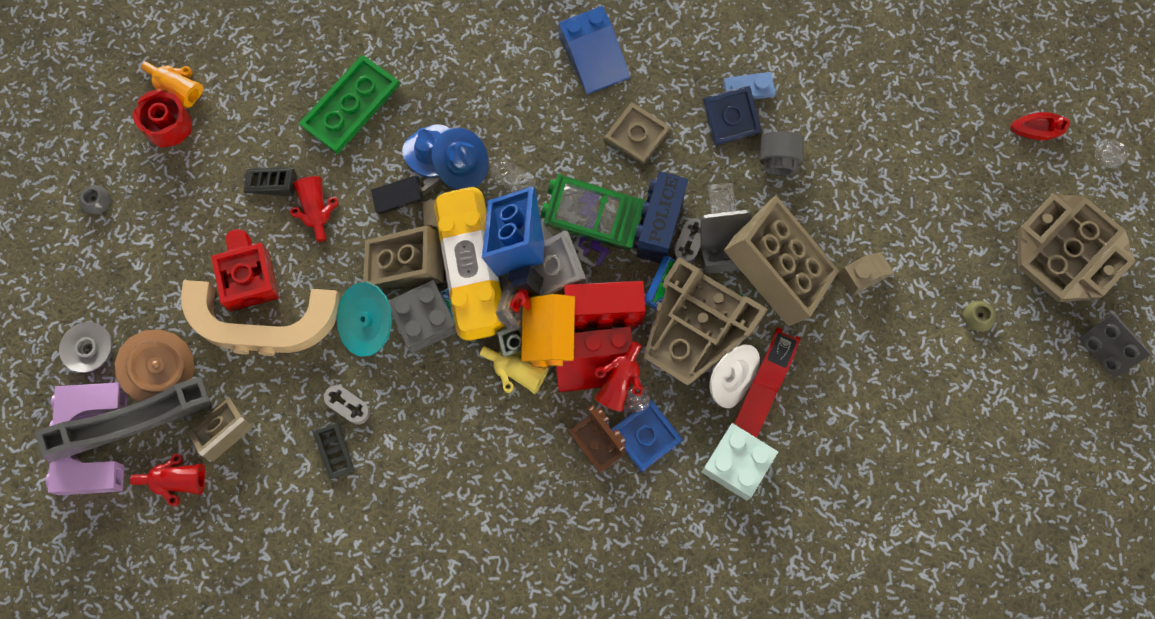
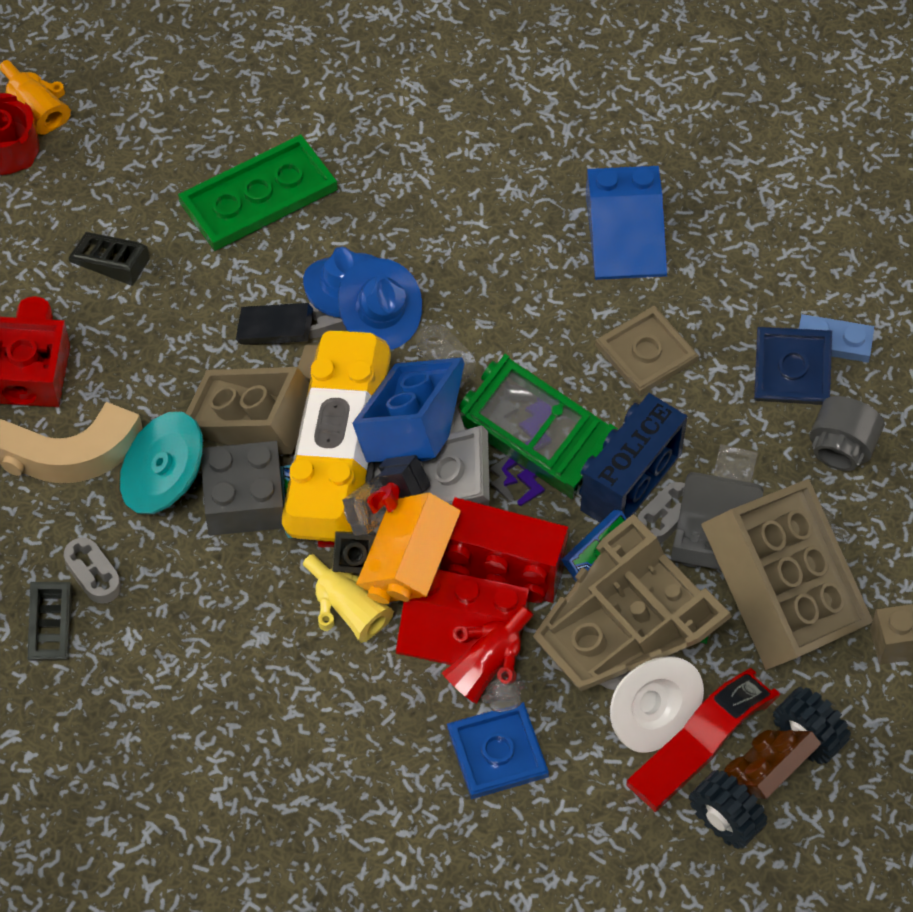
camera: 20 degrees right, 15 degrees down
(312, 202) = (156, 292): red piece -> none
(598, 441) = (425, 728): reddish brown bracket -> none
(739, 462) = (618, 826): light aqua brick -> none
(816, 391) = (729, 797): none -> black plate

